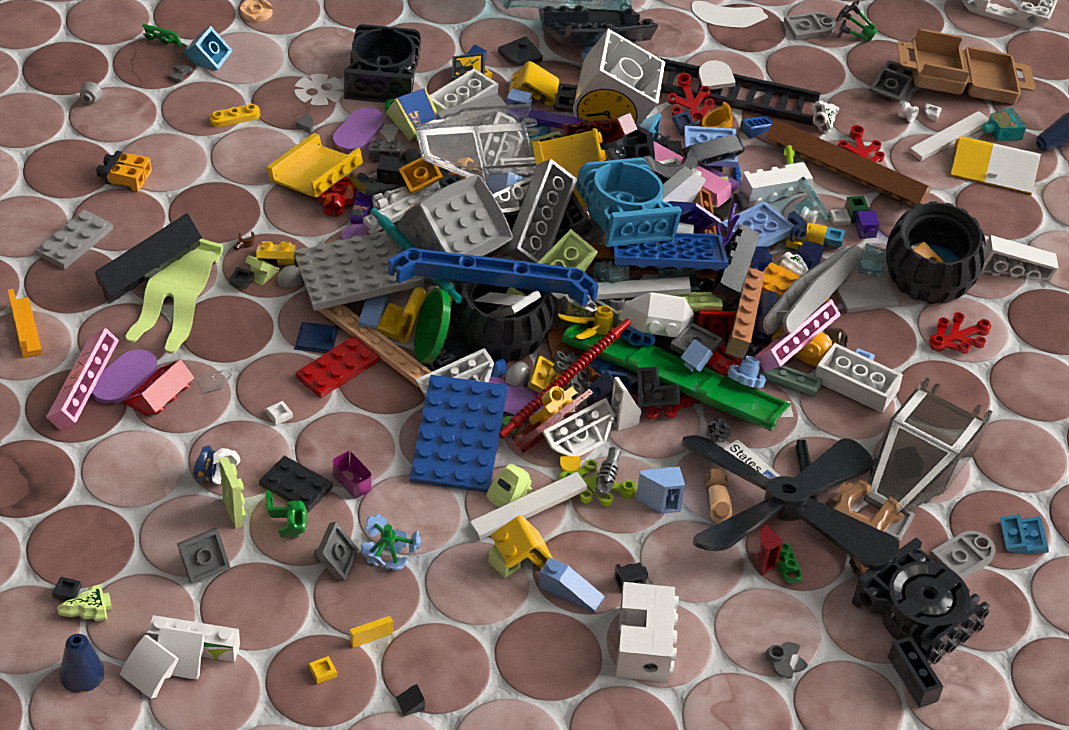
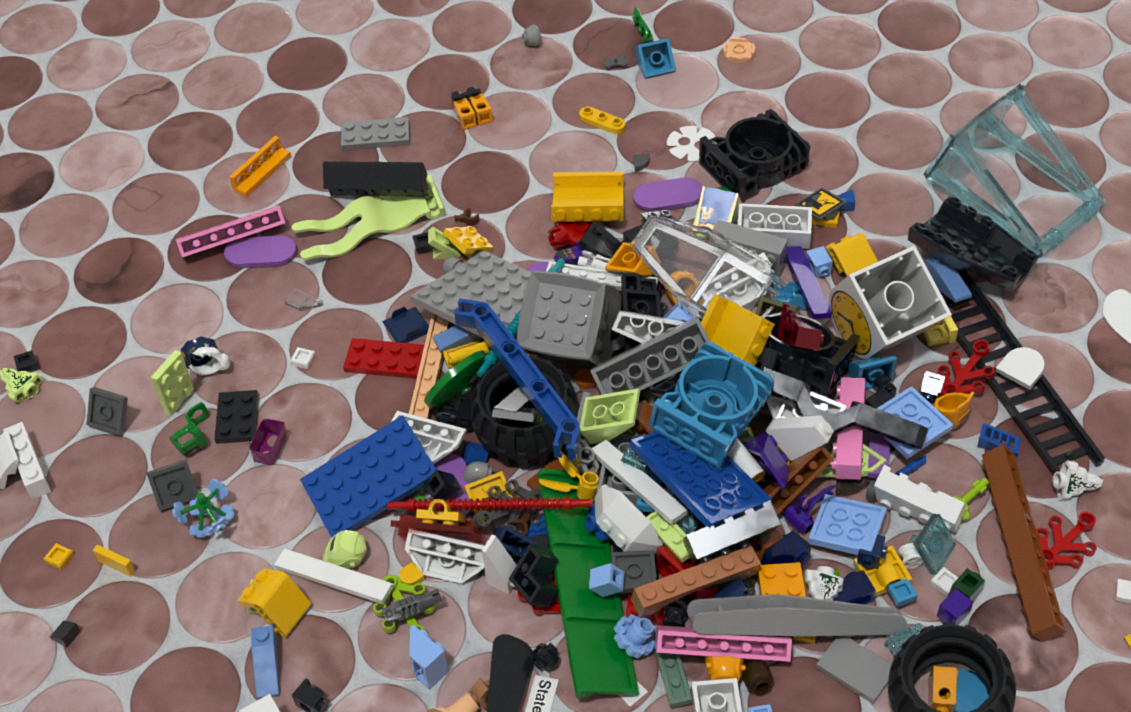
camera: 60 degrees right, 5 degrees up
(160, 388) = (260, 278): slope -> none
(517, 394) = (442, 485): none -> black brick
(520, 52) = (888, 224): black plate -> none

